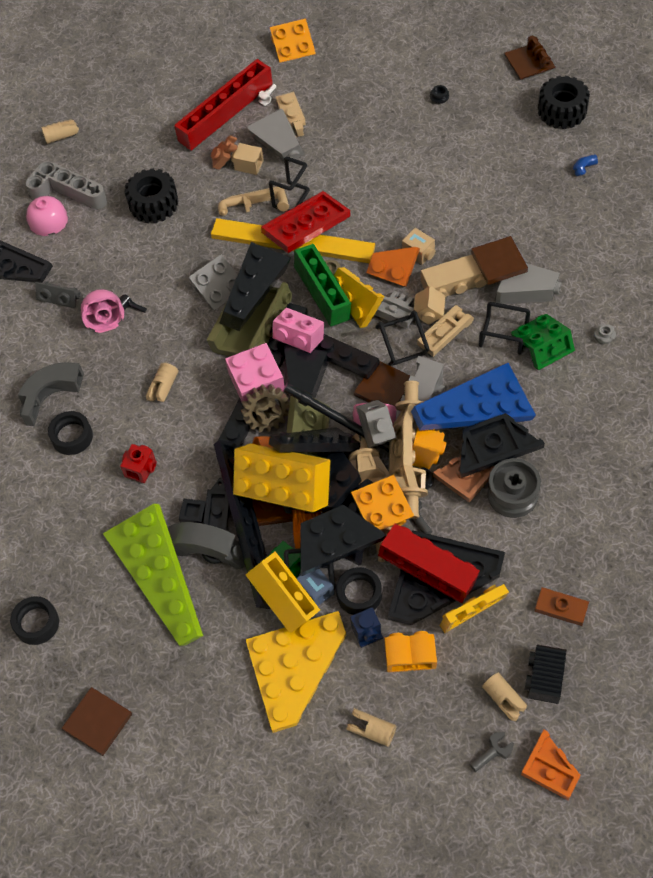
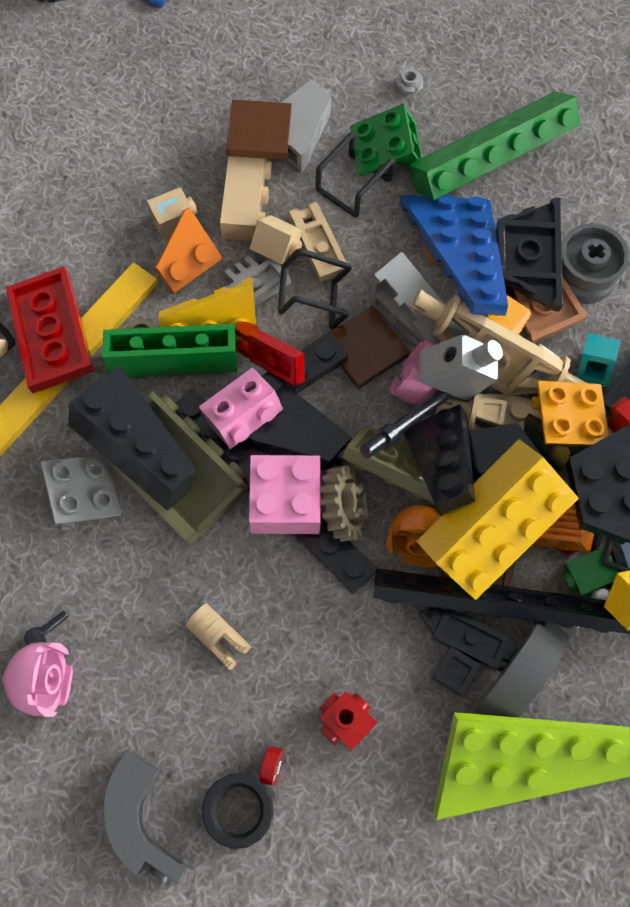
camera: 75 degrees left, 10 degrees up
(100, 438) = (271, 765): none -> red tile
(344, 330) = (270, 353): none -> red hinge
(440, 516) = (598, 359): none -> teal brick
(578, 399) = (494, 144): none -> green brick

